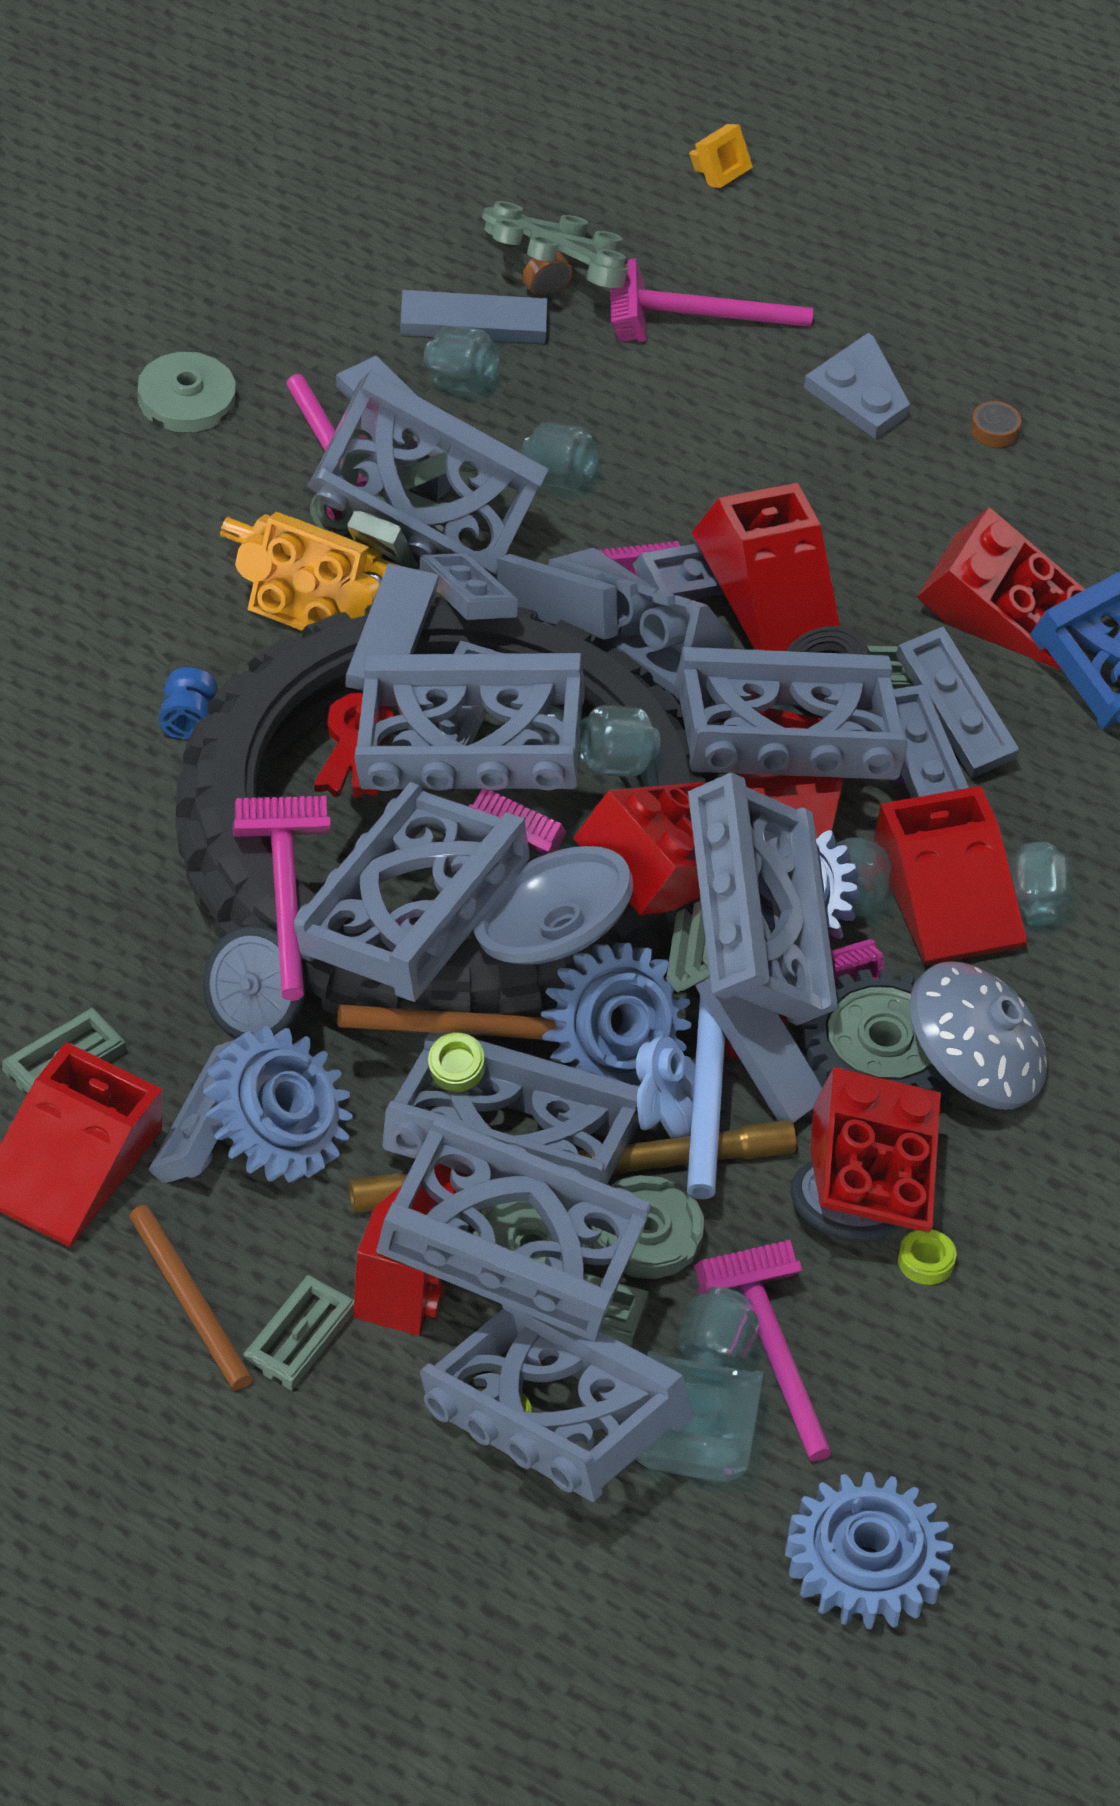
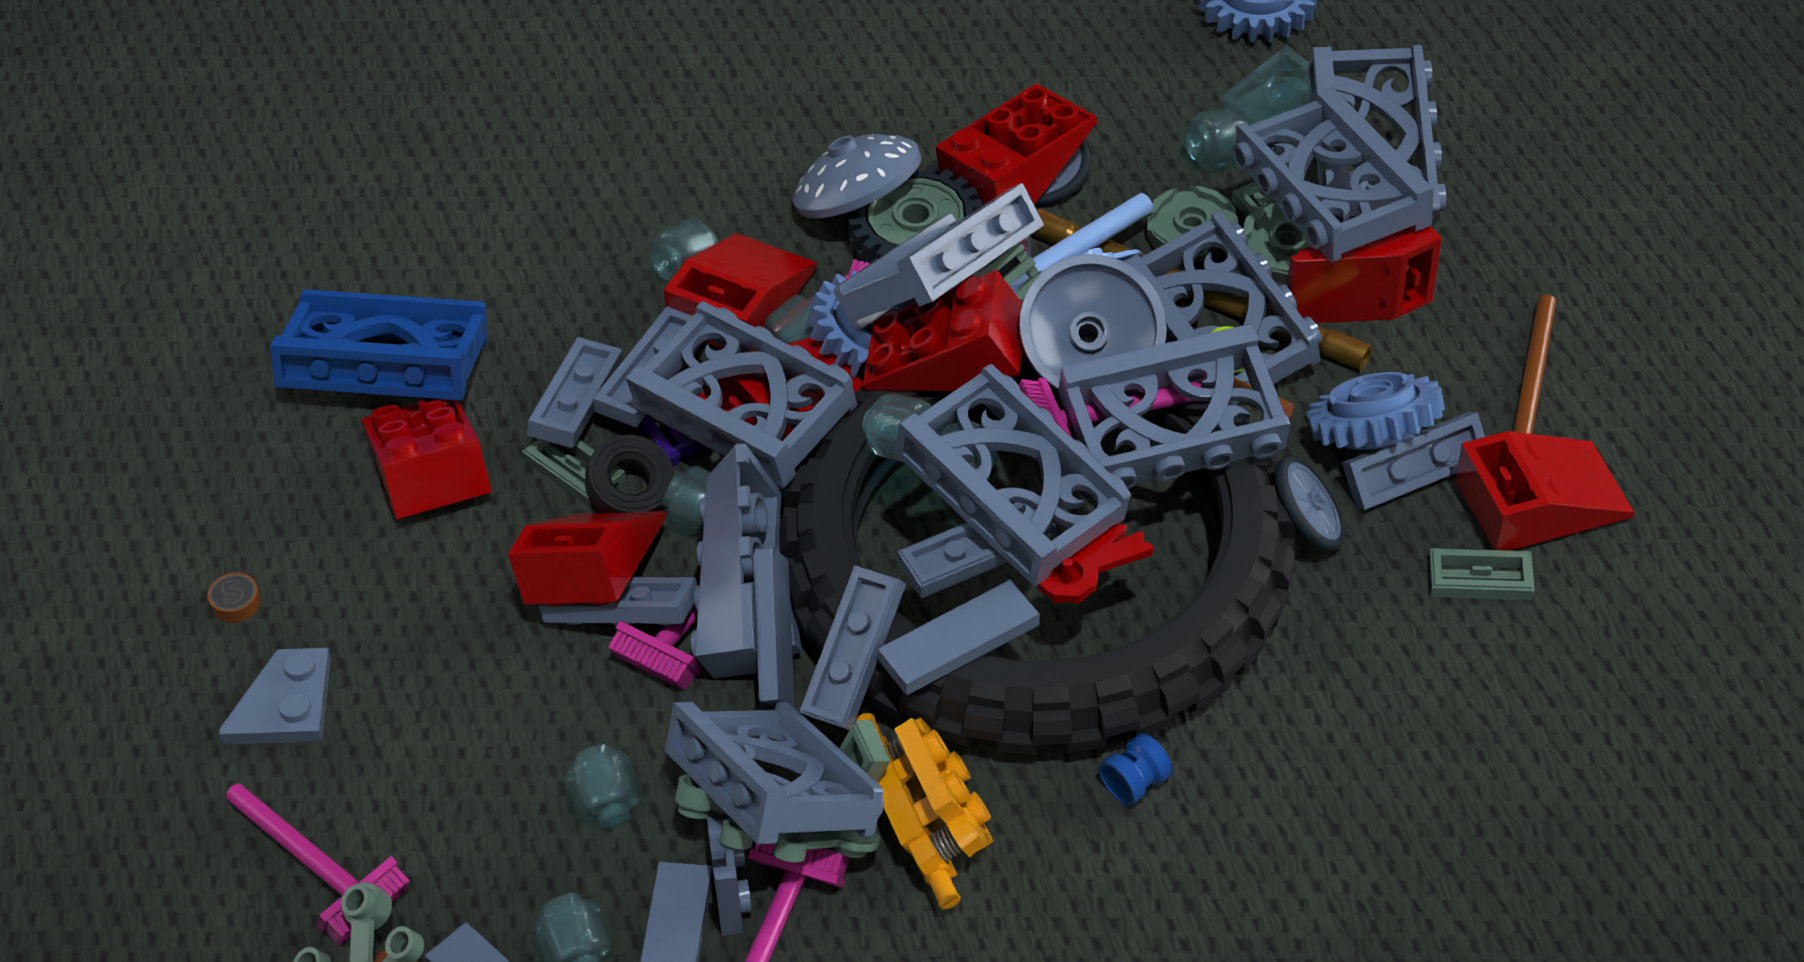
camera: 130 degrees left, 0 degrees up
(276, 1365) = (1483, 311): sand green tile -> none
(282, 820) = (1218, 532): dark pink piece -> none
(747, 1272) = (1167, 160): dark pink piece -> none

